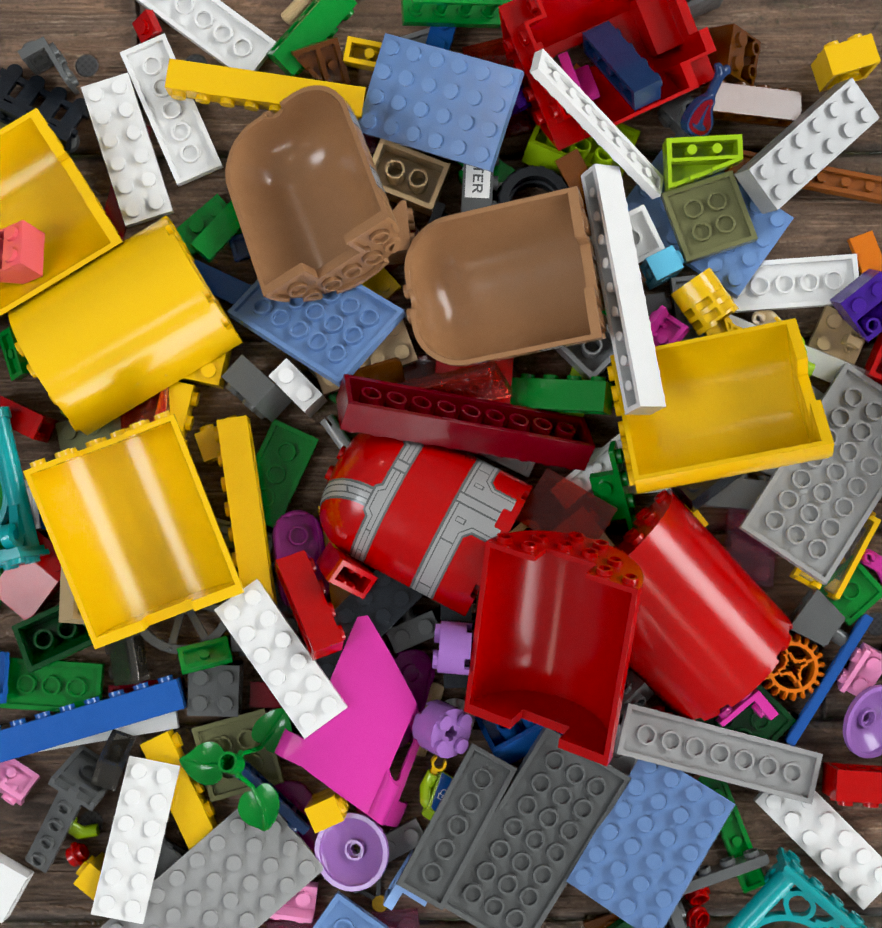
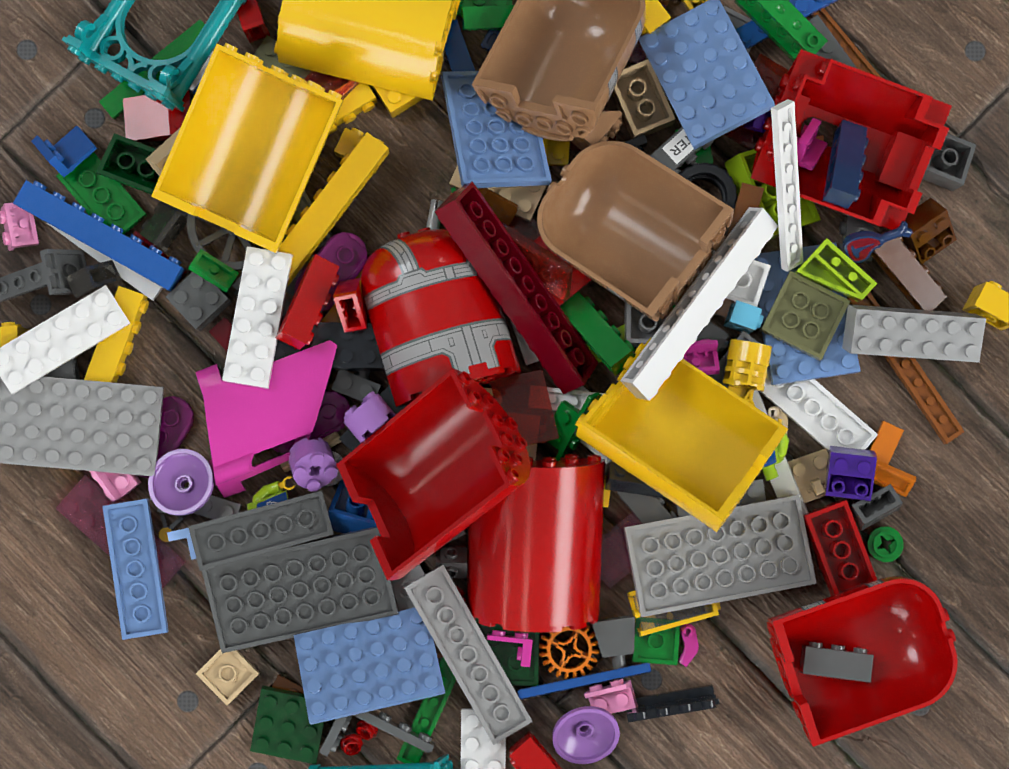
camera: 45 degrees right, 0 degrees up
(77, 854) = (13, 314): red plate -> none
(85, 831) = (29, 303): lime arm -> none
(209, 761) = (152, 337): green plant -> none
(235, 735) = (172, 353): olive plate -> none
(255, 389) = (410, 138): dark grey brick -> none
(281, 467) = (379, 203): green plate -> none
(295, 818) = (165, 364): dark blue plate -> none
(298, 387) = (438, 163): white brick -> none
(326, 809) = (191, 440): yellow brick -> none

